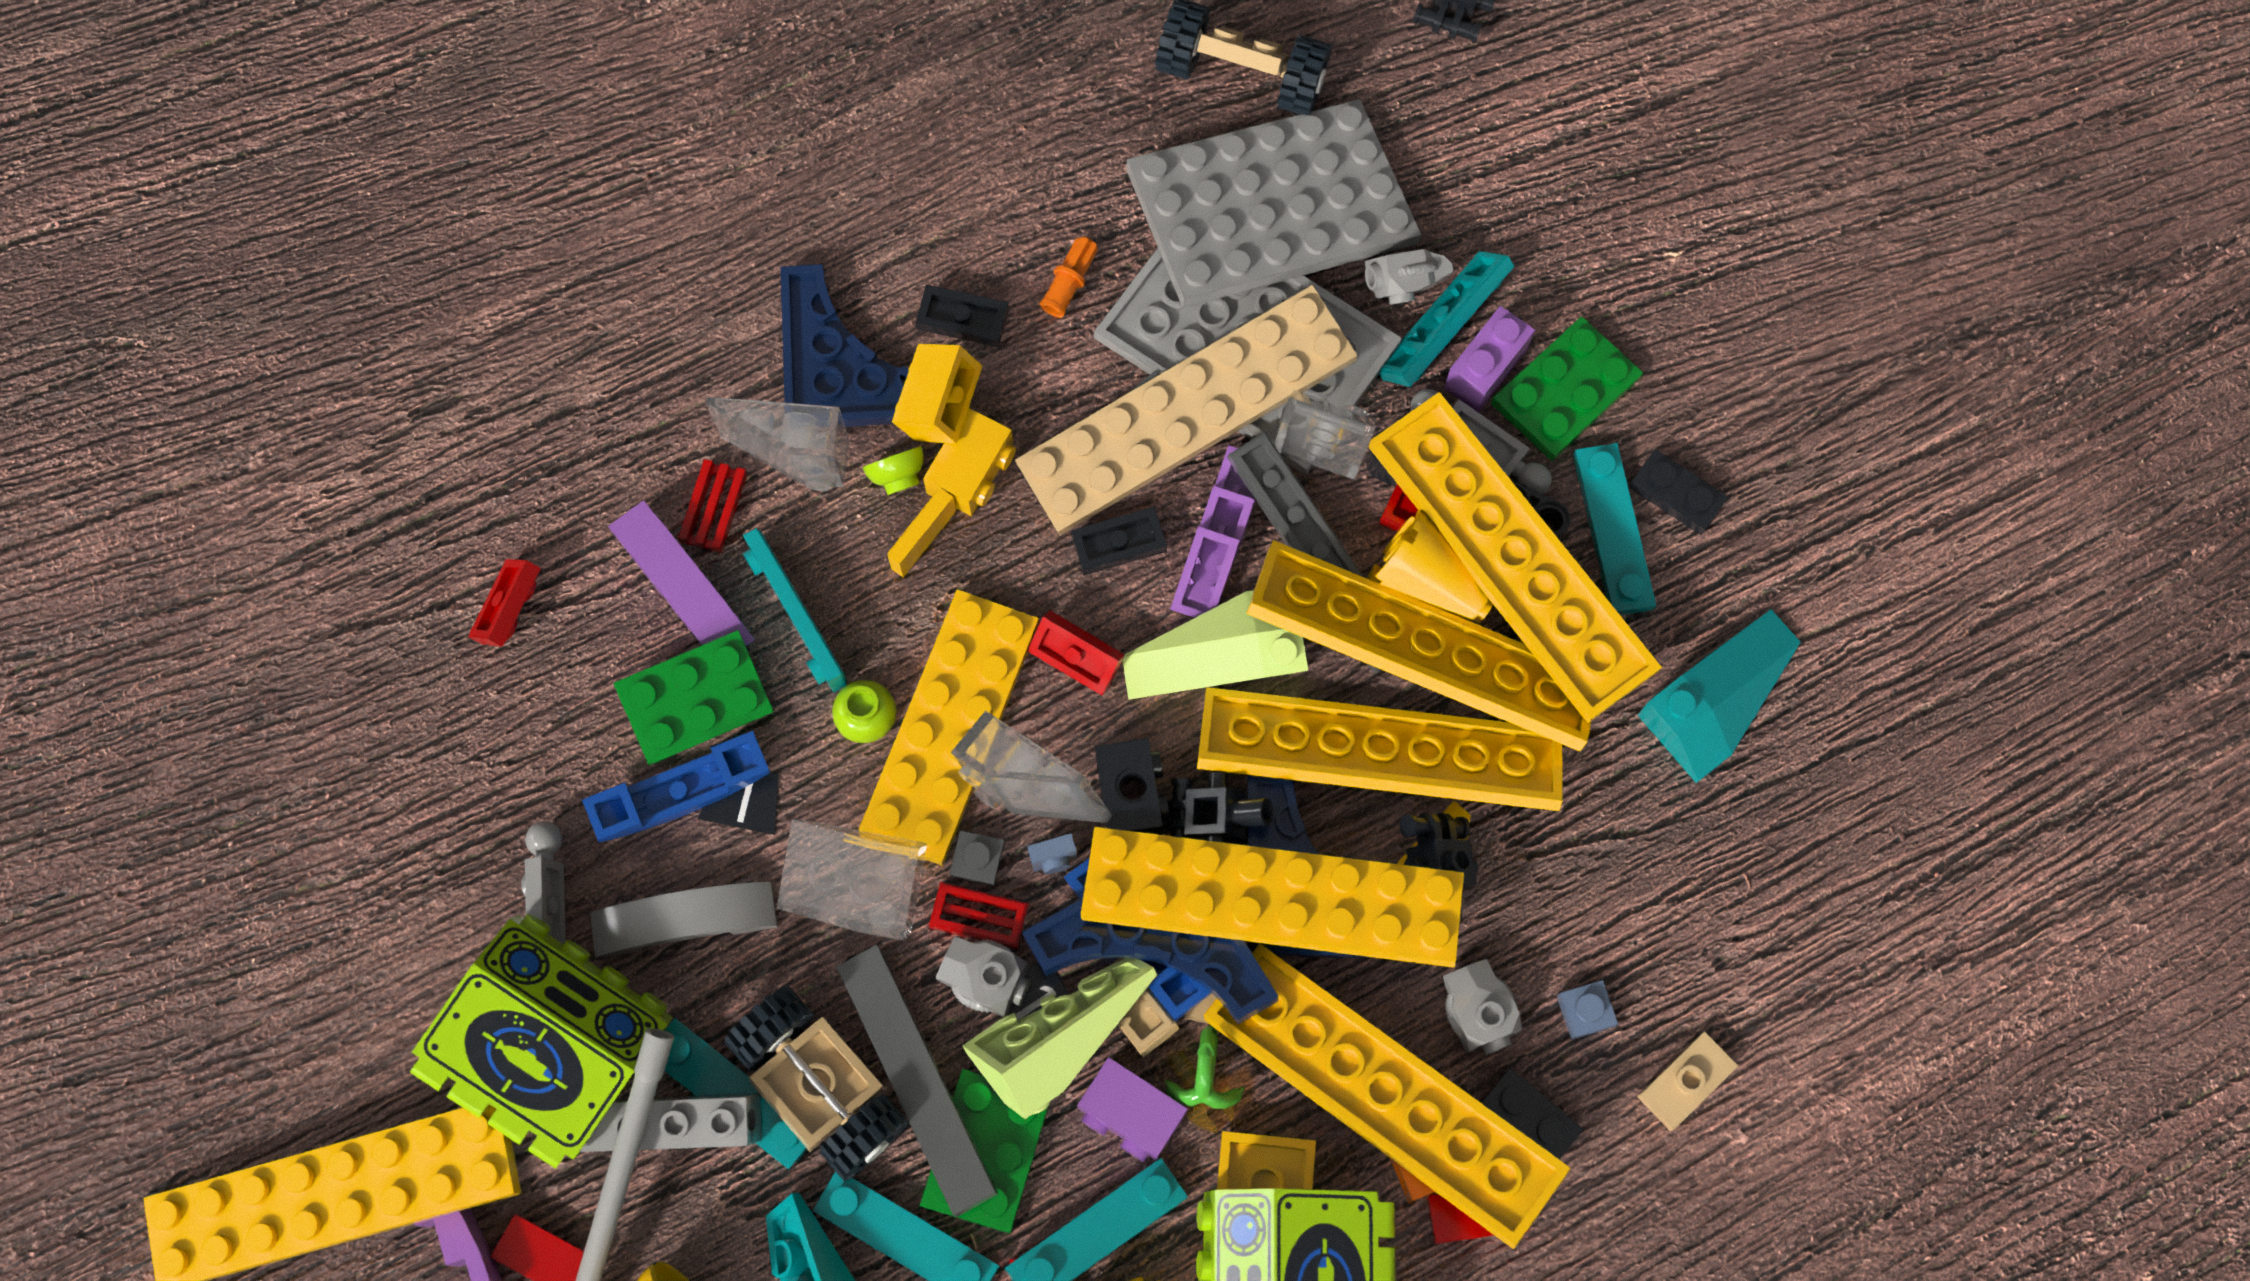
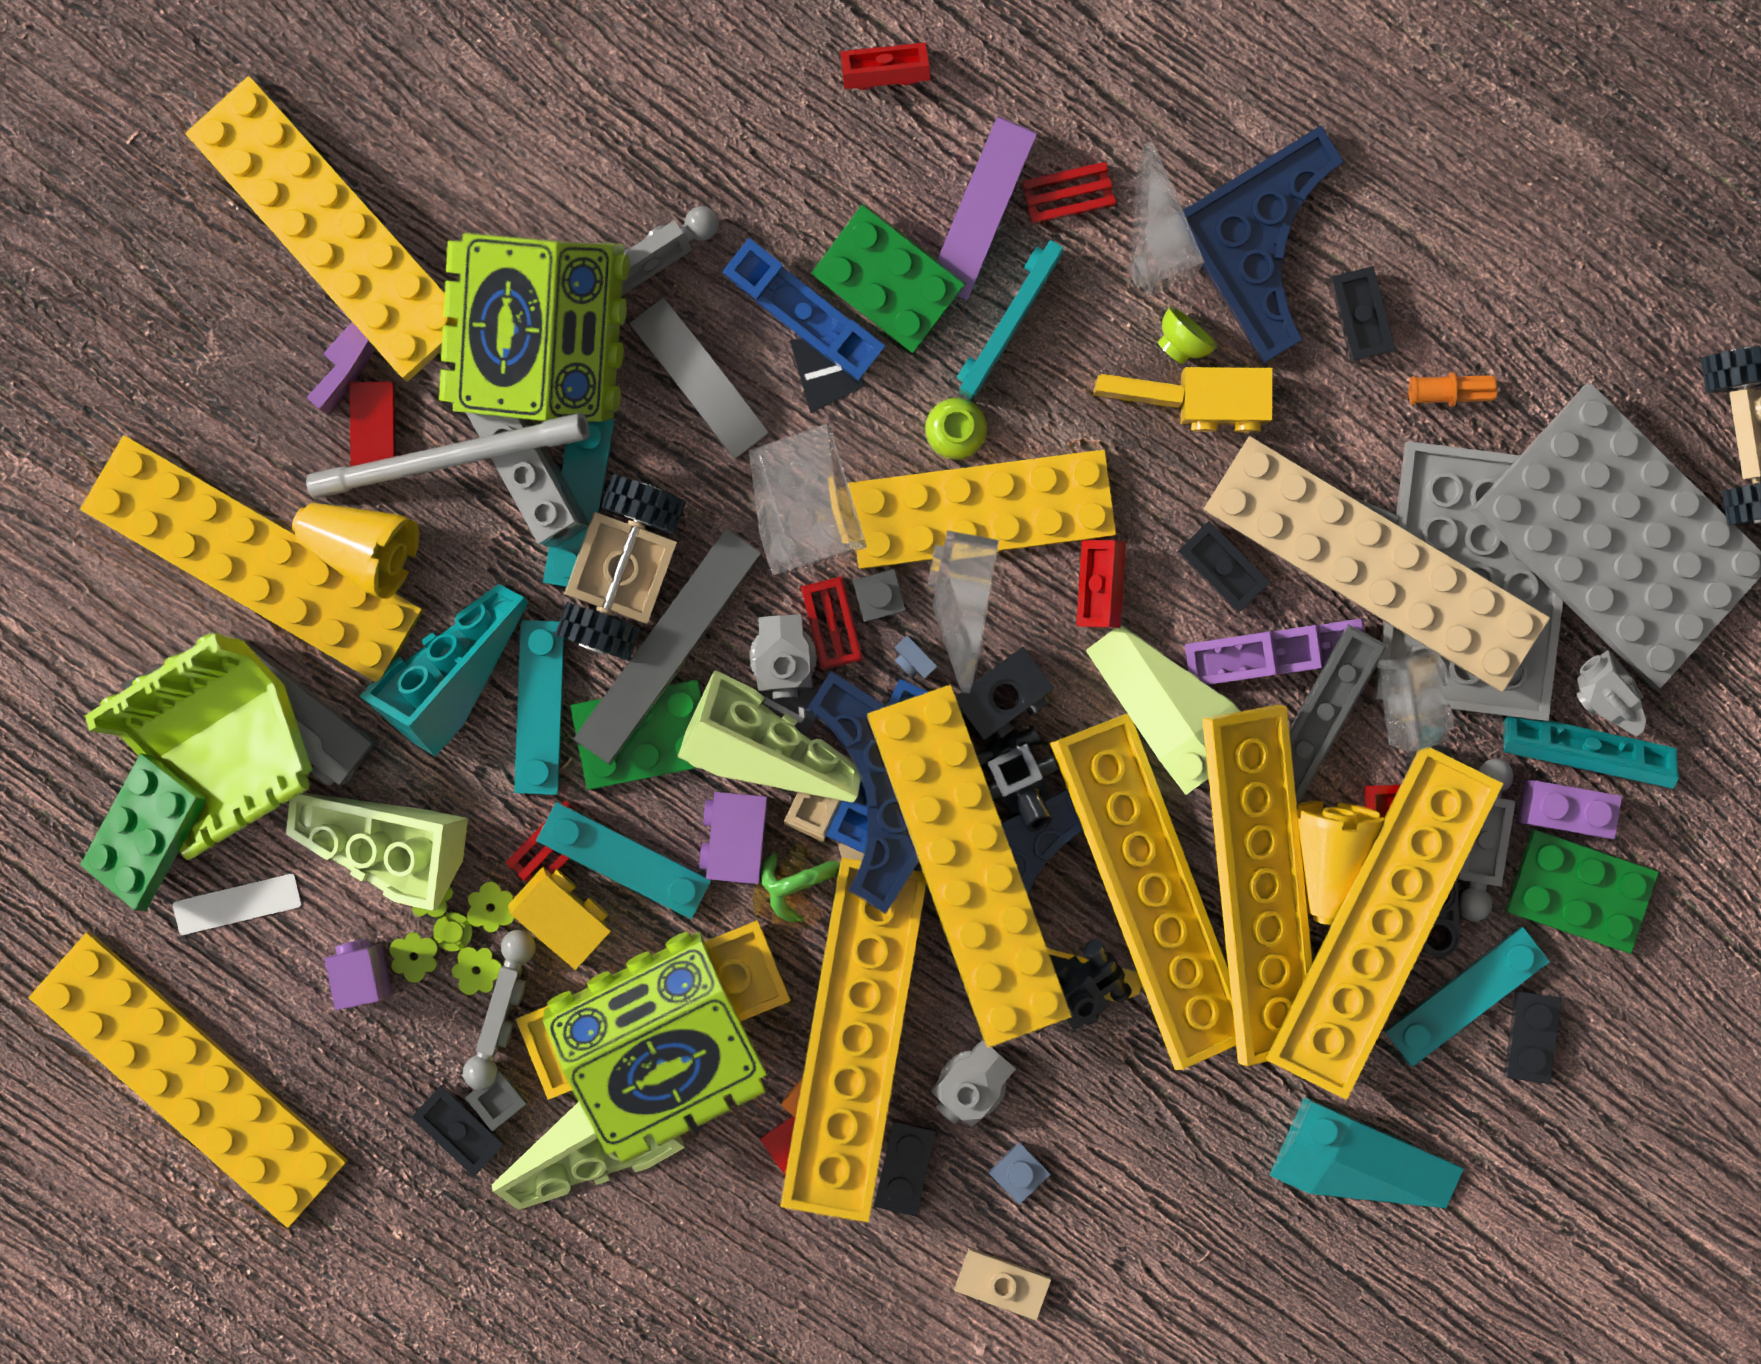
camera: 60 degrees right, 15 degrees up
(937, 393) = (1268, 337): yellow brick -> none

